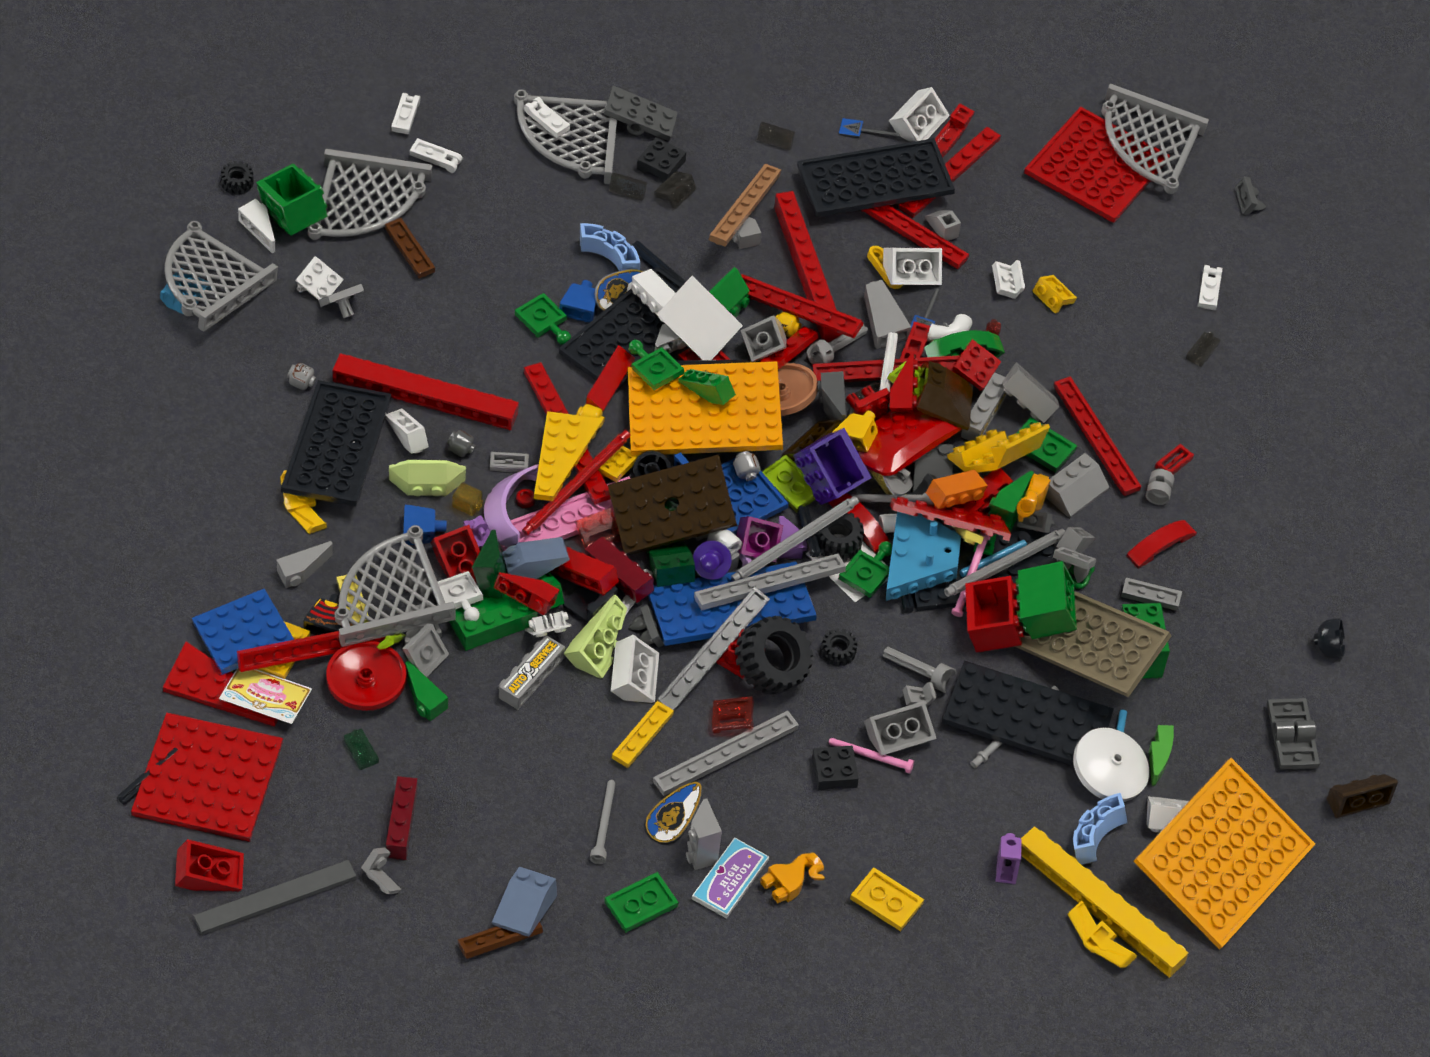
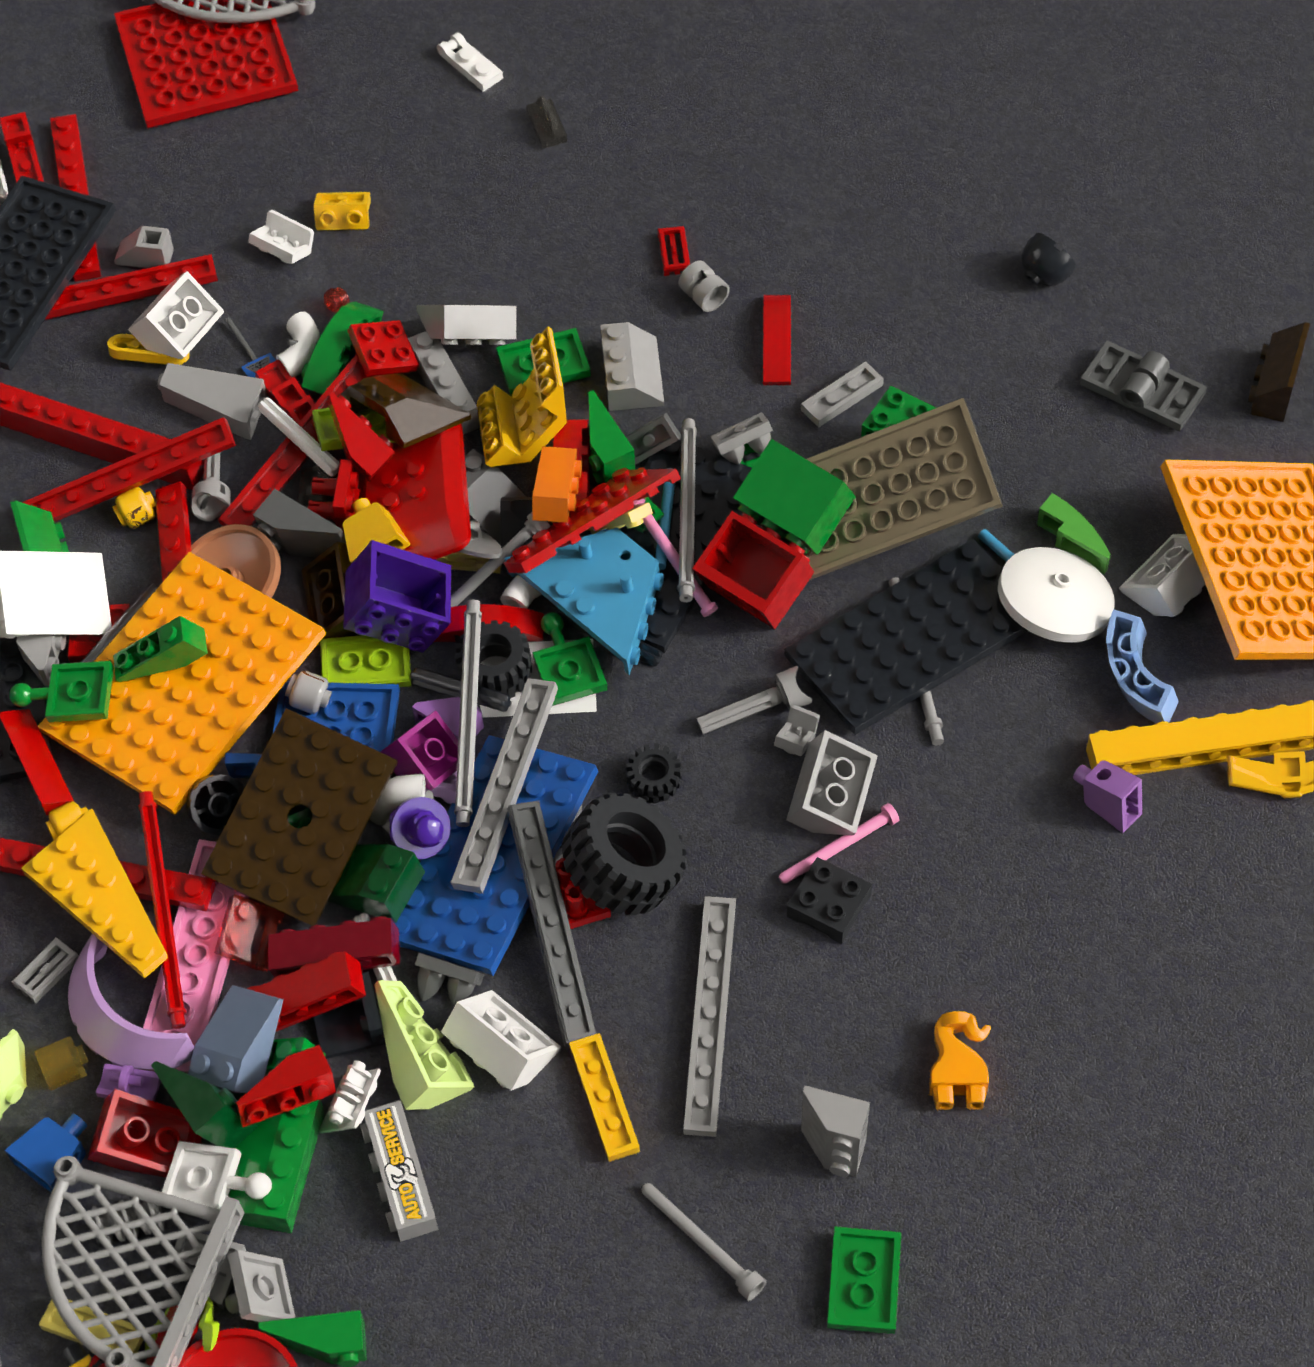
camera: 45 degrees left, 5 degrees up
(525, 498) = (119, 989): red tile -> none
(618, 464) = (175, 839): yellow bracket -> none
(674, 813) = (759, 1142): shield -> none
(730, 878) = (905, 1142): tile -> none
(732, 709) = (654, 959): clear red plate -> none
(764, 338) = (140, 544): light grey slope -> none
(887, 899) = (1069, 974): yellow plate -> none
(1034, 496) = (629, 419): light orange hips -> none
(1076, 539) = (708, 419): light grey slope -> none
(1097, 436) = (577, 300): red plate -> none

